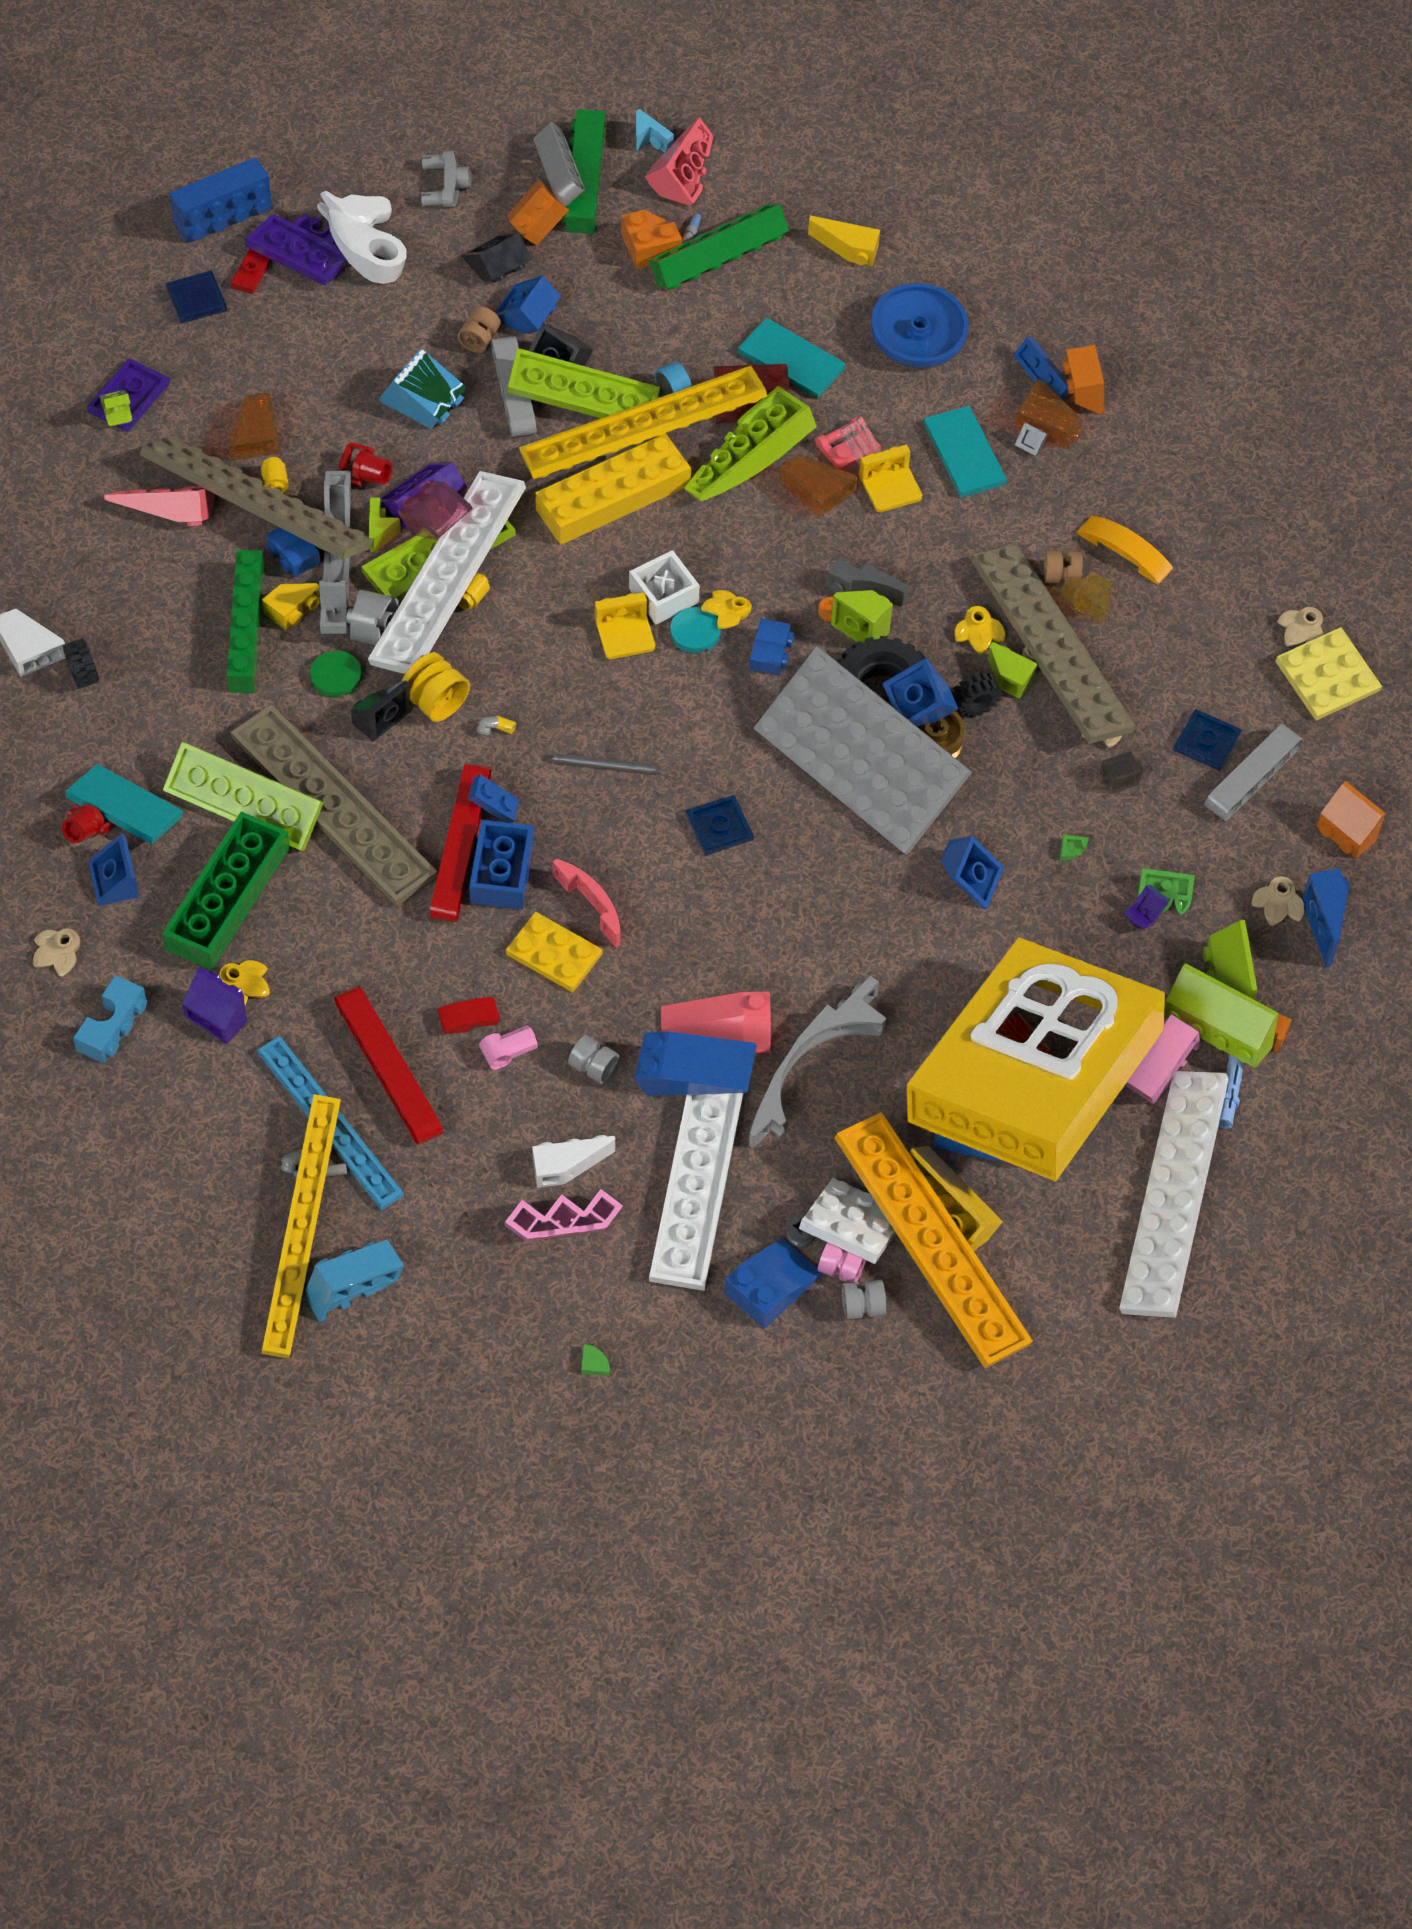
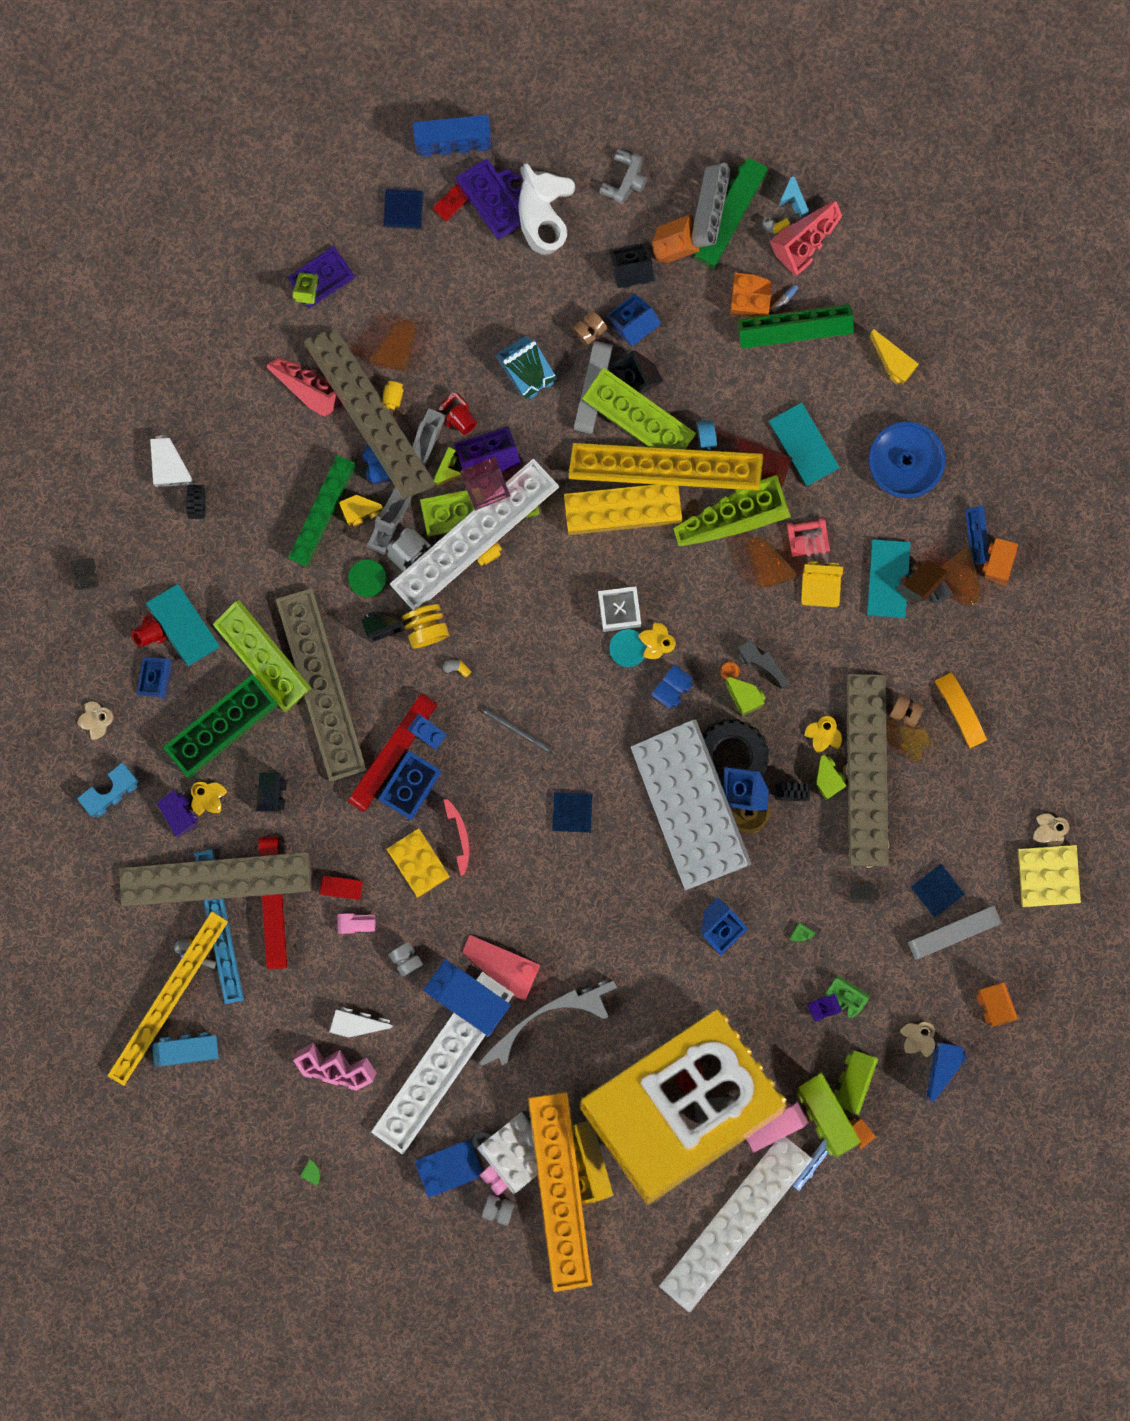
camera: 30 degrees right, 25 degrees up
(299, 1063) = (215, 879): none -> dark tan plate
(327, 937) = (270, 793): none -> black slope
(624, 626) = (578, 628): yellow bracket -> none
(636, 170) = (775, 227): none -> arm
(1004, 430) = (921, 581): none -> reddish brown slope

